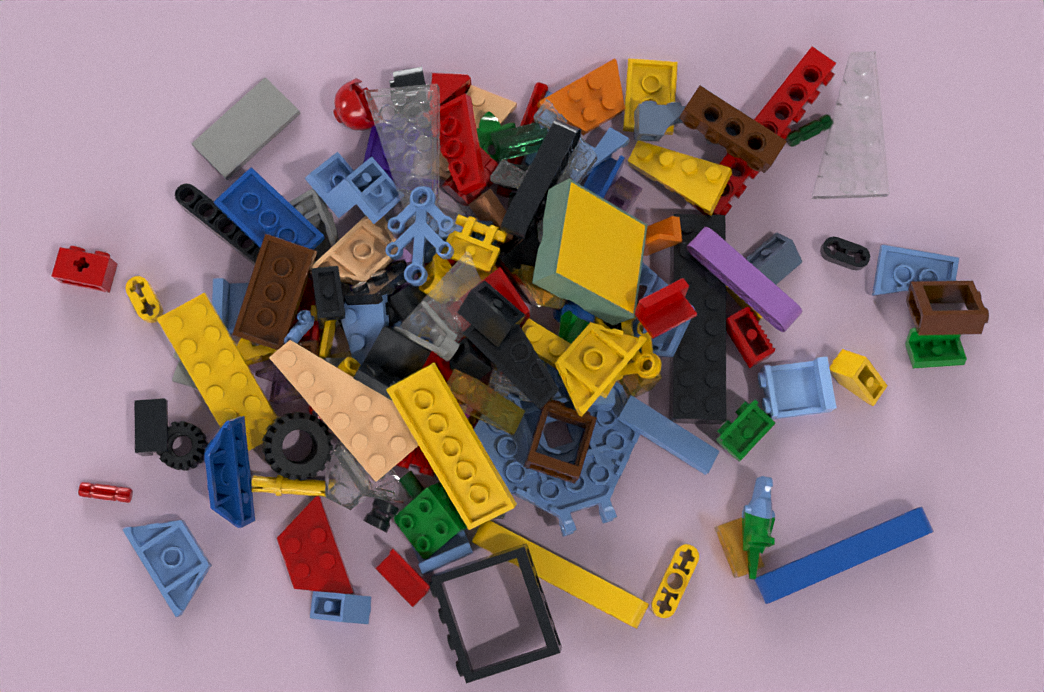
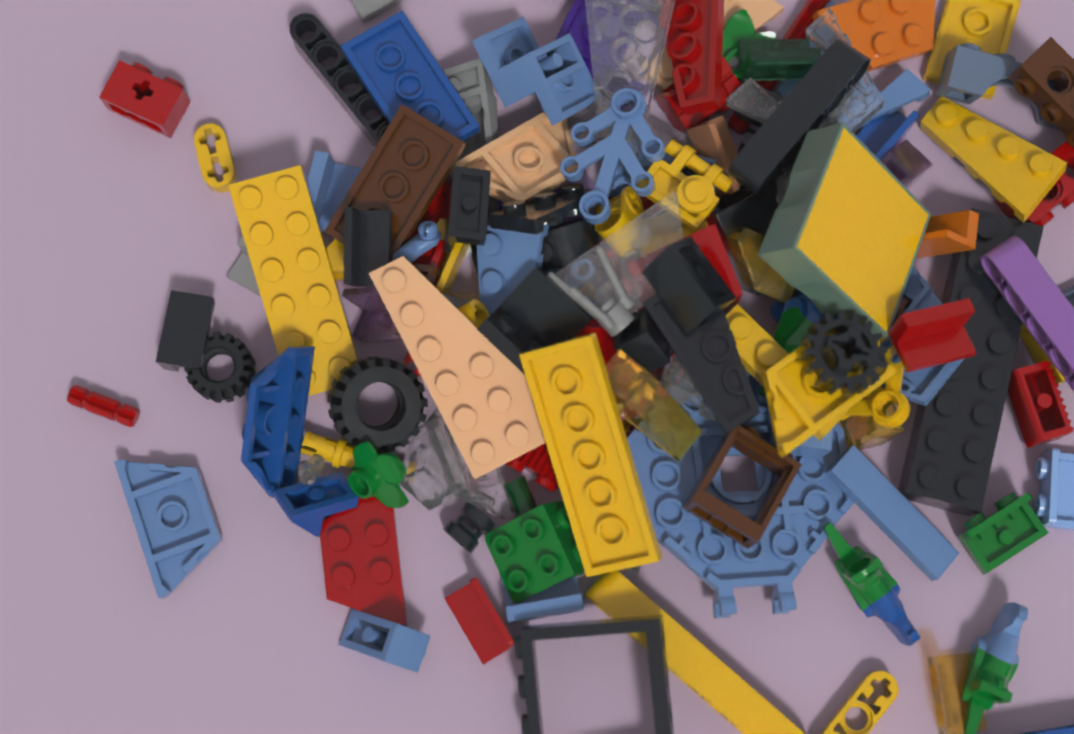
camera: 15 degrees right, 0 degrees up
(262, 501) = (312, 469): none -> clear arm
(263, 337) = (366, 244): none -> black panel
(266, 524) = (310, 503): none -> blue slope
(309, 495) = (378, 476): none -> green plate
(482, 249) = (695, 194): none -> yellow plate
(596, 342) = (837, 355): none -> black gear
(664, 488) = (871, 586): none -> green animal

